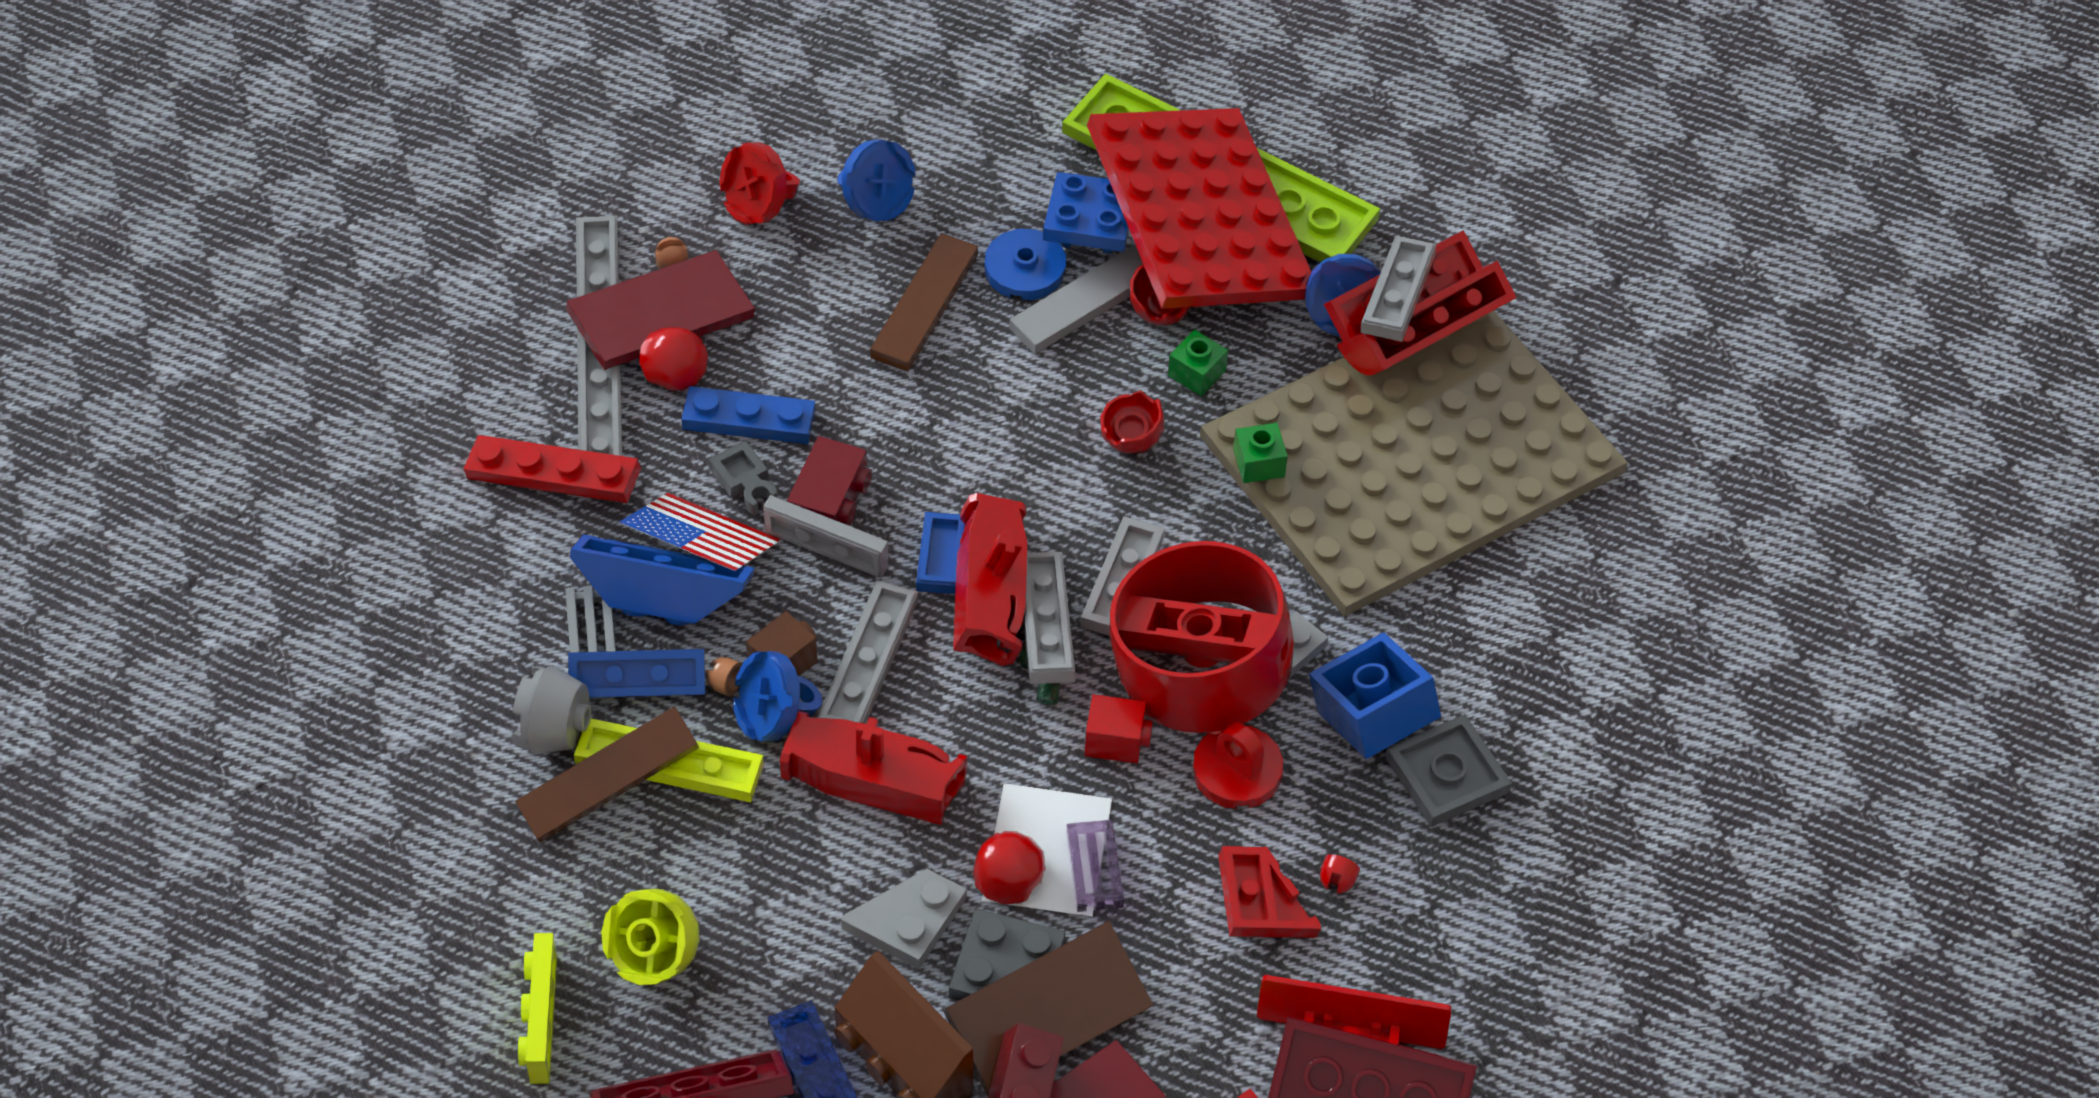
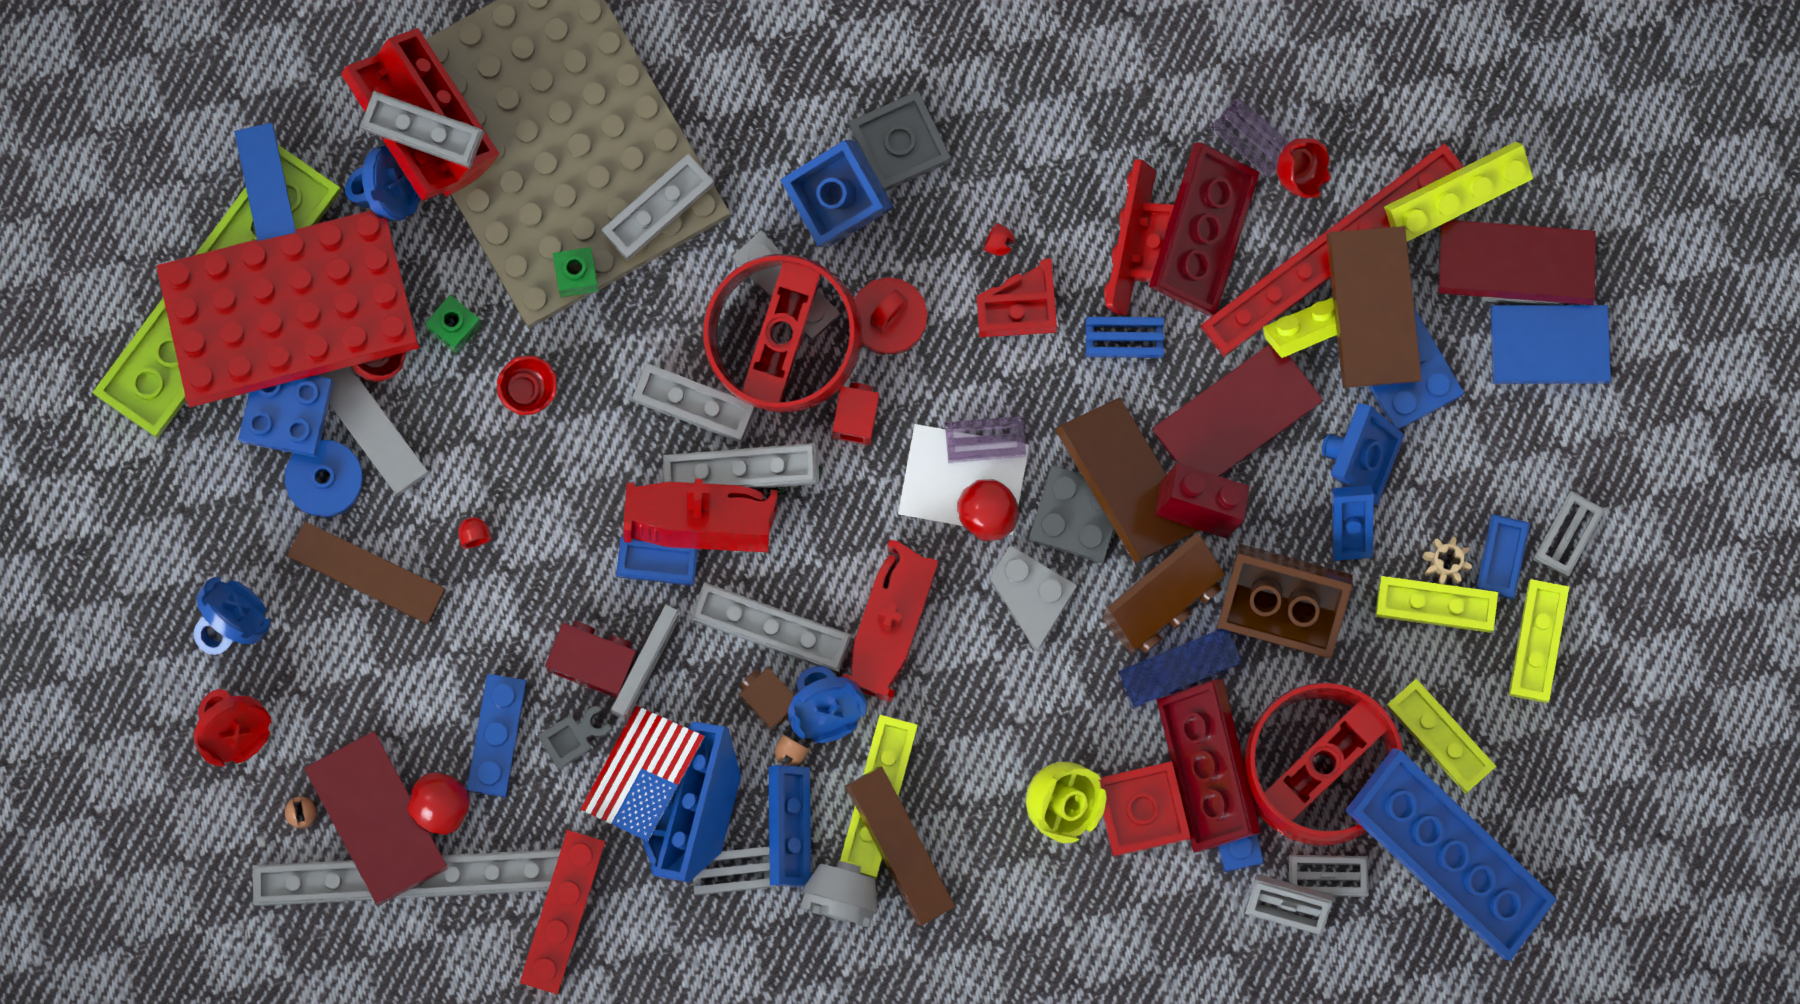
camera: 90 degrees left, 25 degrees up
(538, 1008) = (1121, 895): neon yellow plate -> none
(643, 1031) = (1143, 809): none -> red plate
(969, 386) = (473, 533): none -> red hinge
(1228, 979) = (1125, 322): none -> blue tile
(1337, 194) = (265, 181): none -> blue tile
(1341, 525) = (657, 207): none -> light grey plate

